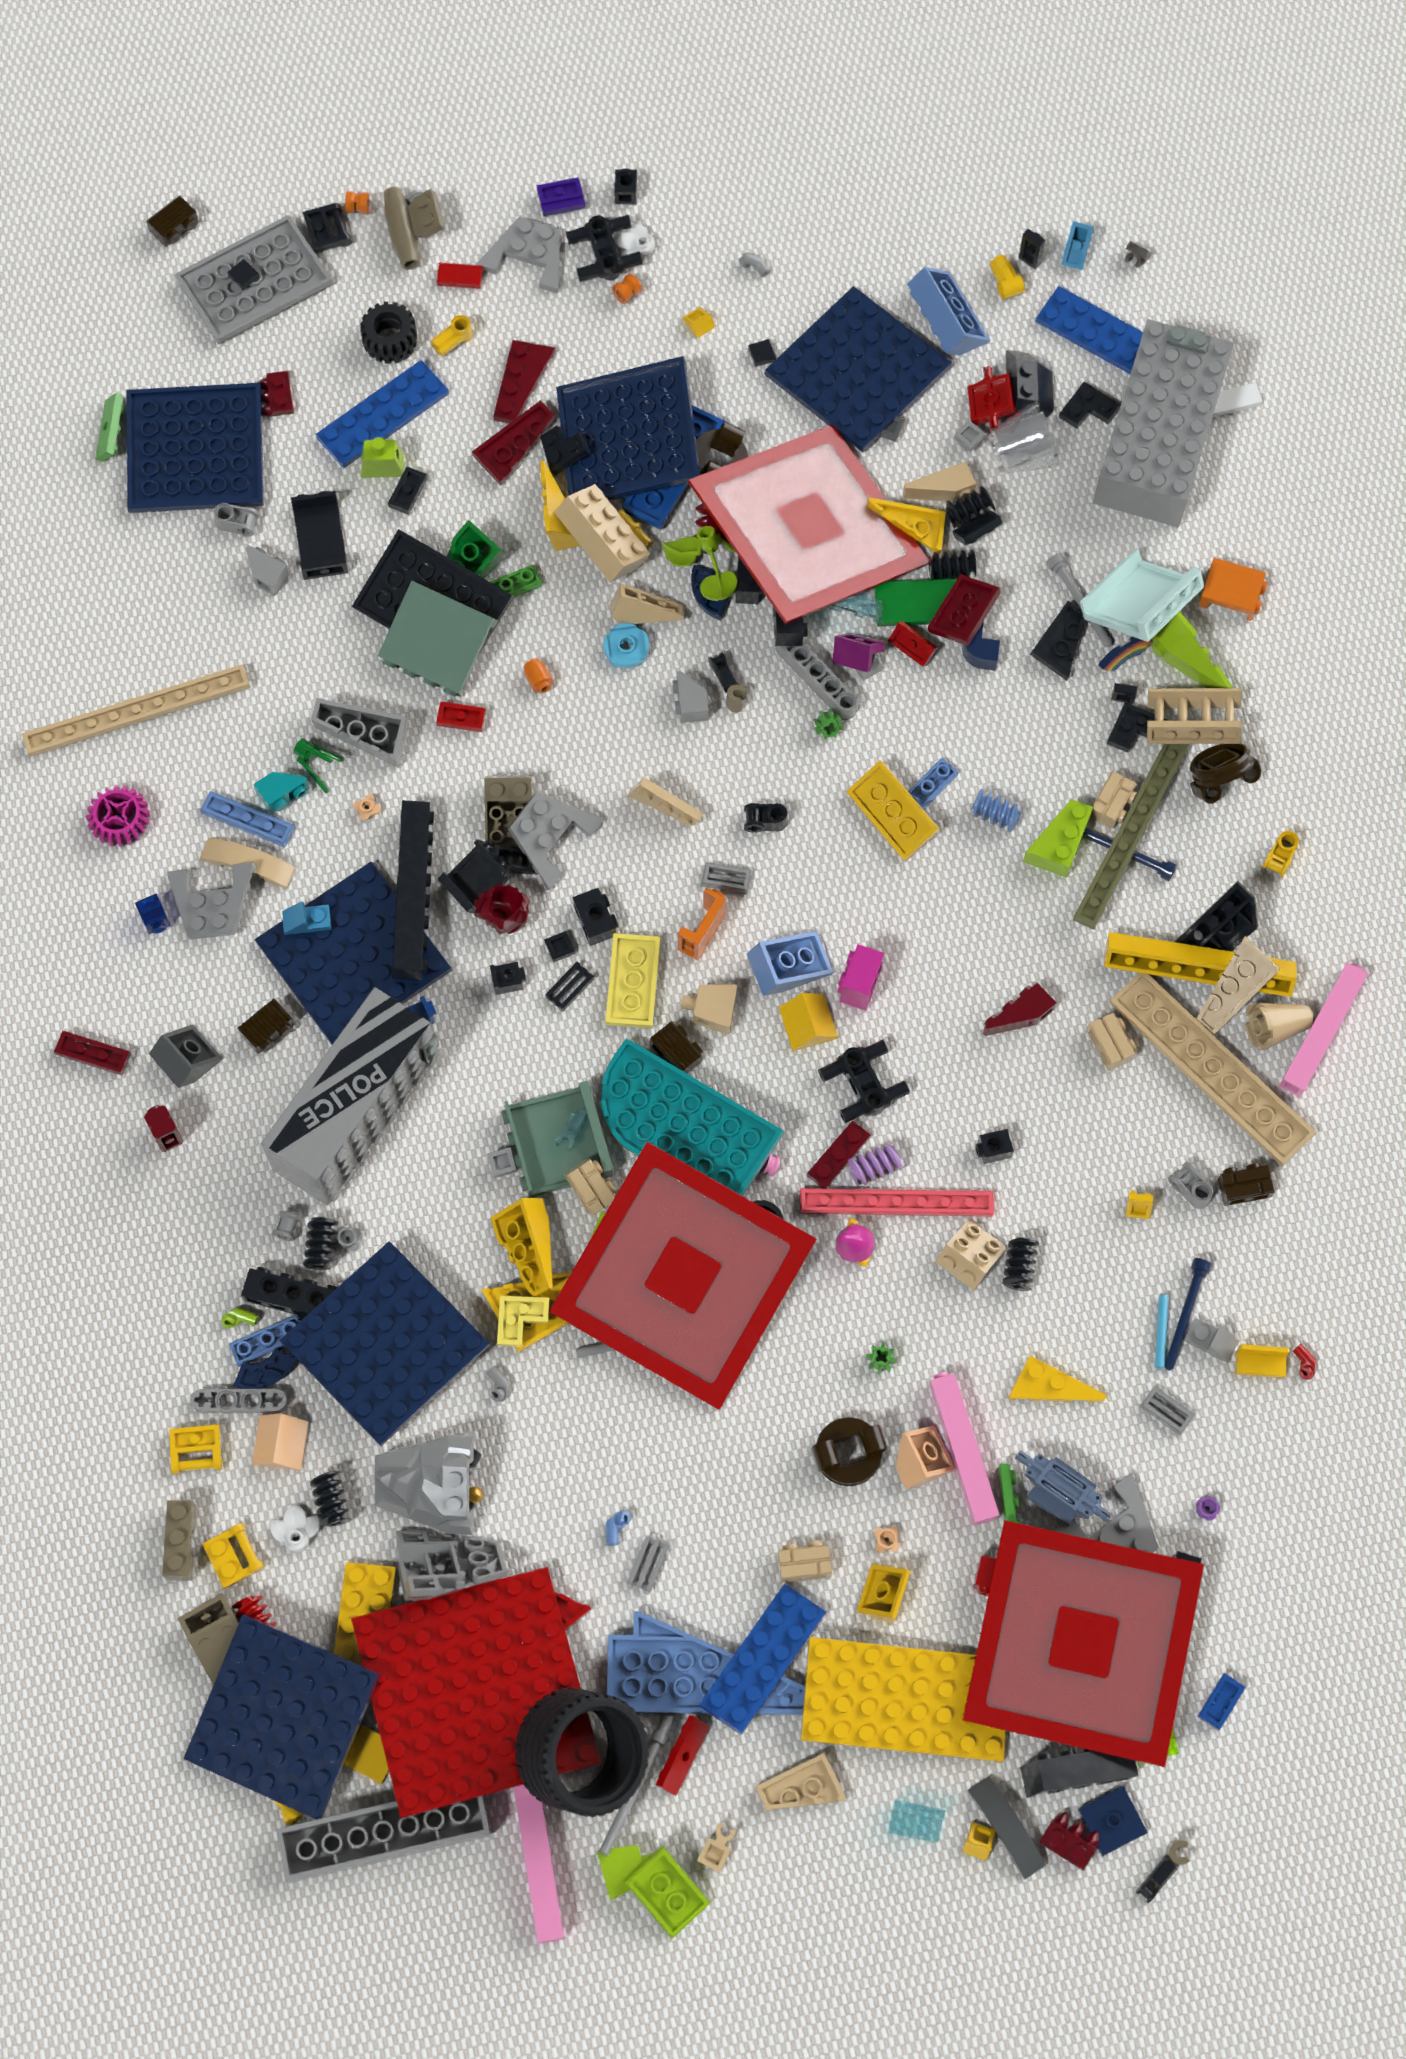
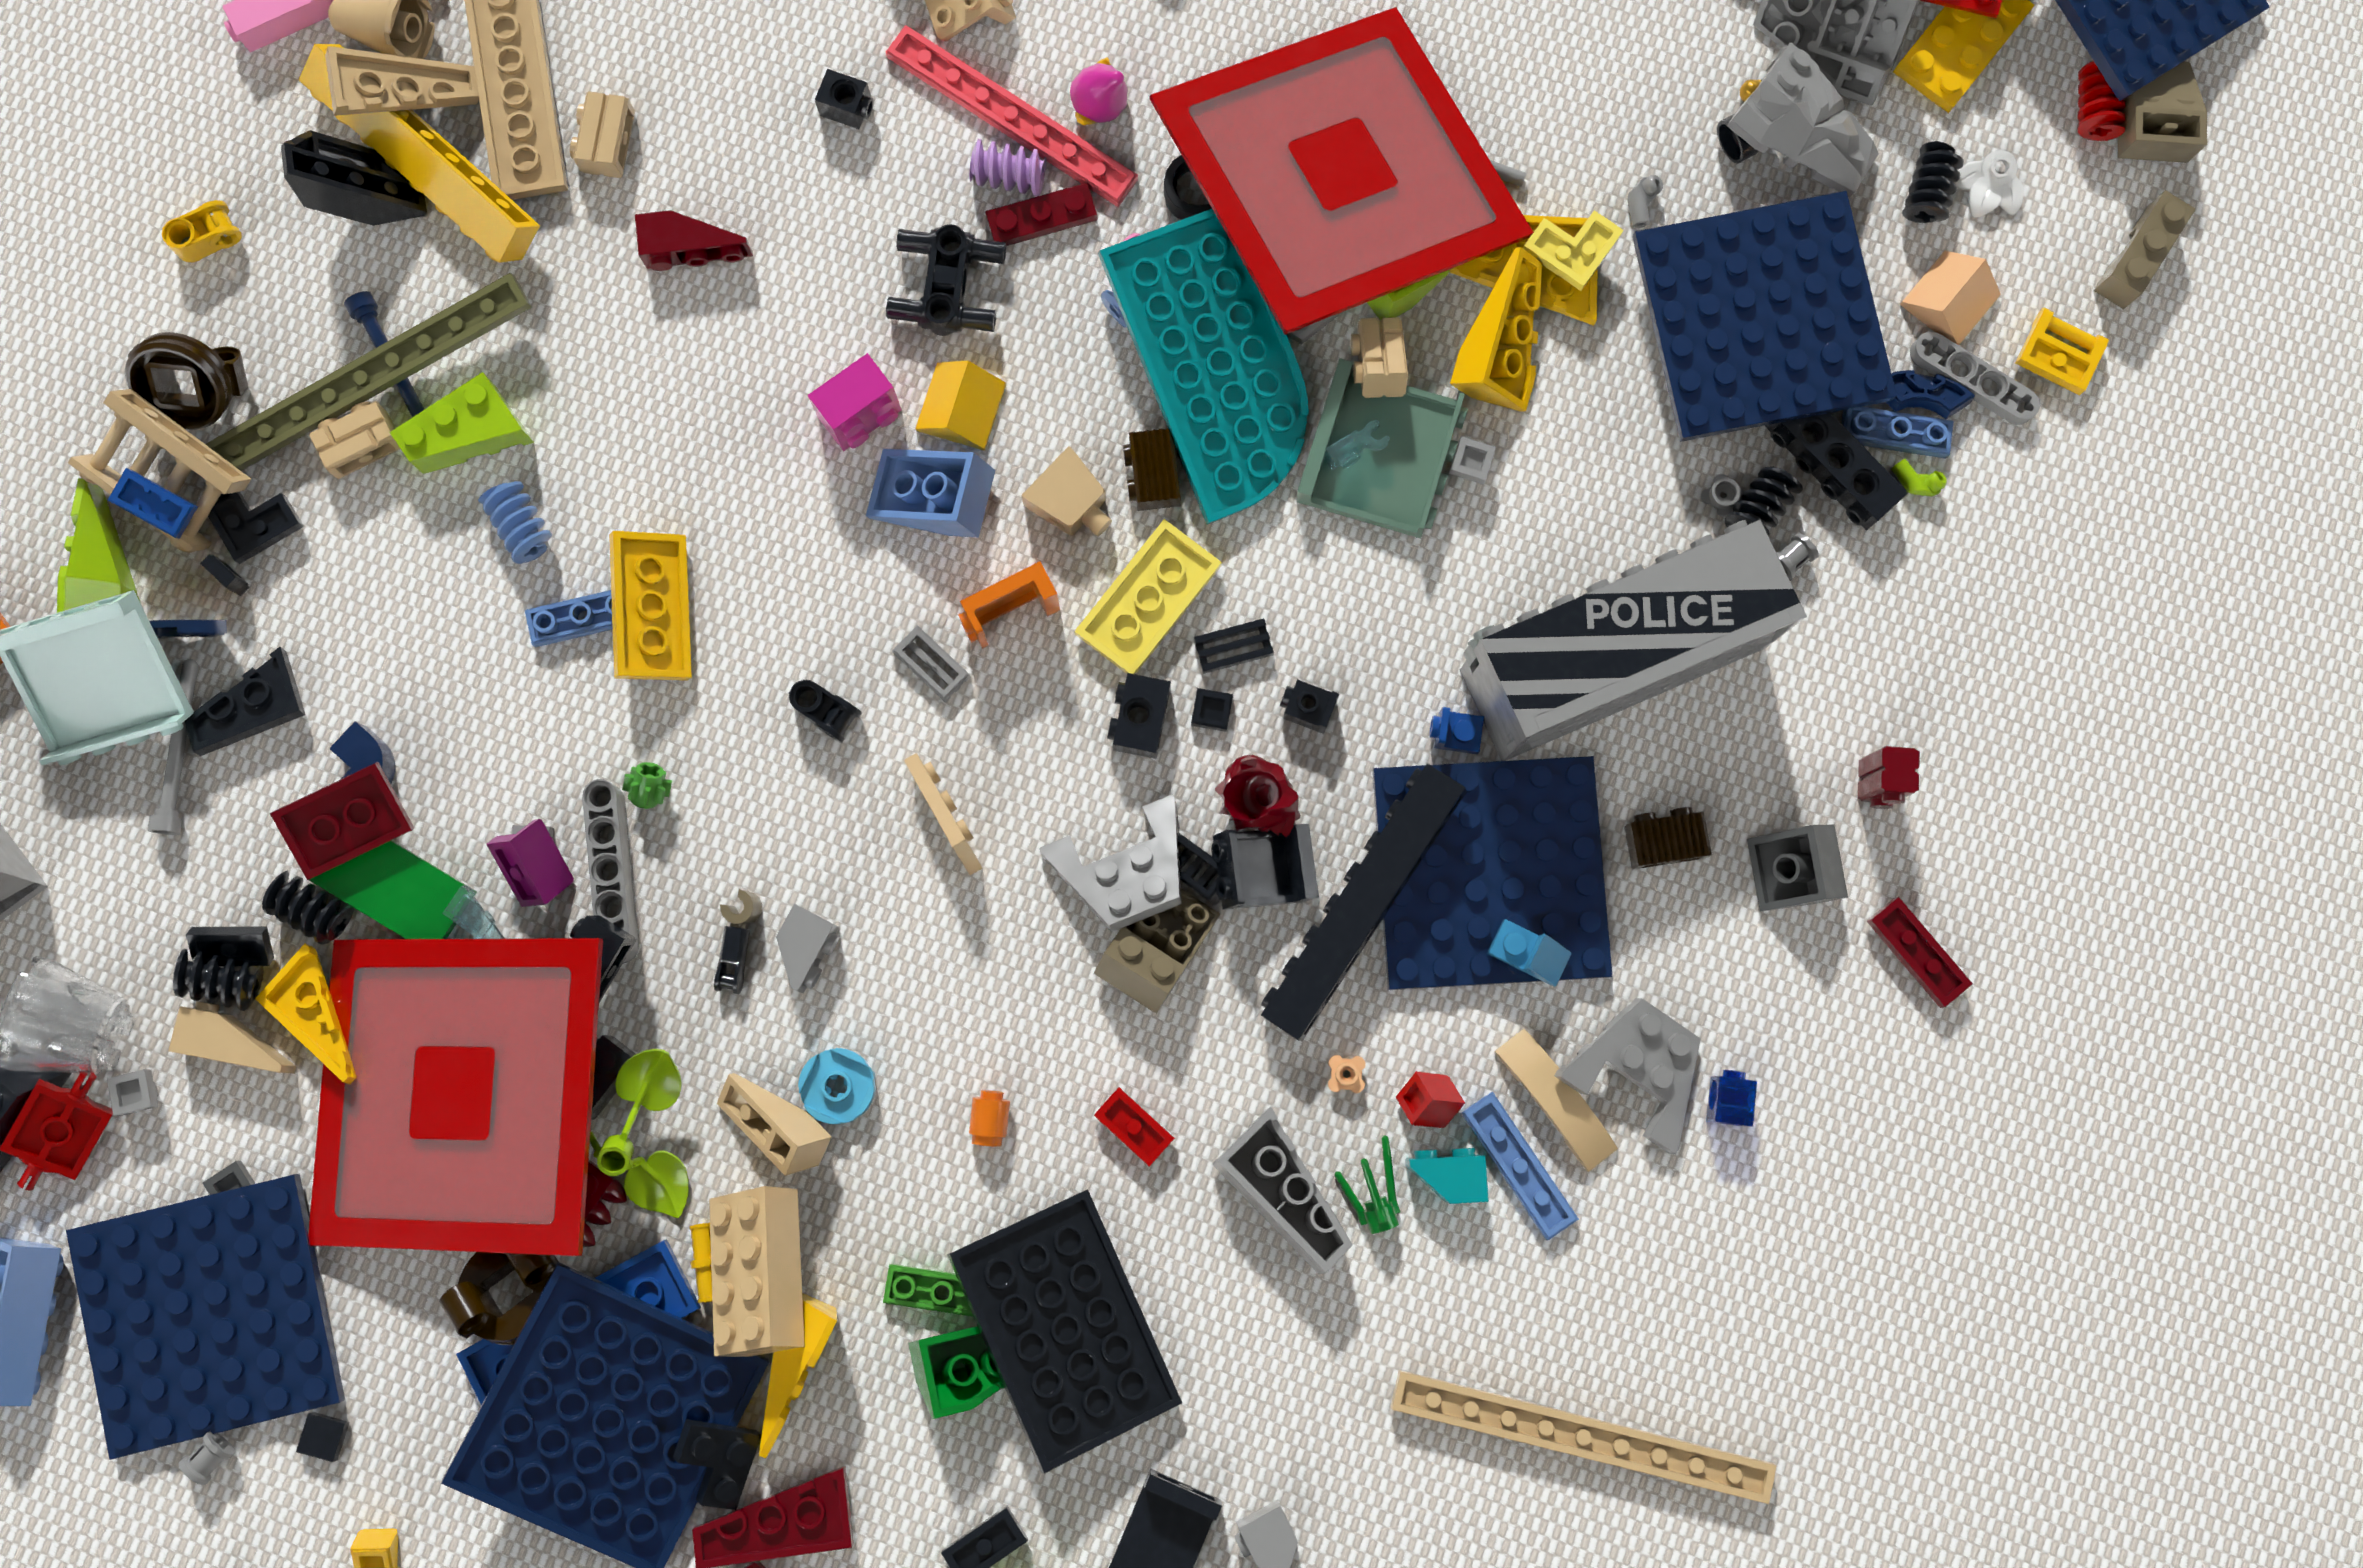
camera: 150 degrees left, 10 degrees up
(130, 802) = (1703, 1299): dark pink gear -> none
(225, 1559) = (2094, 200): yellow plate -> none
(314, 820) = (1430, 1100): none -> red panel
(435, 638) = (1096, 1261): sand green panel -> none
(712, 608) = (666, 1125): dark blue tile -> none
(808, 312) = (206, 1458): none -> light grey bush
(912, 643) = (448, 830): red plate -> none
(1181, 695) = (152, 503): none -> blue plate

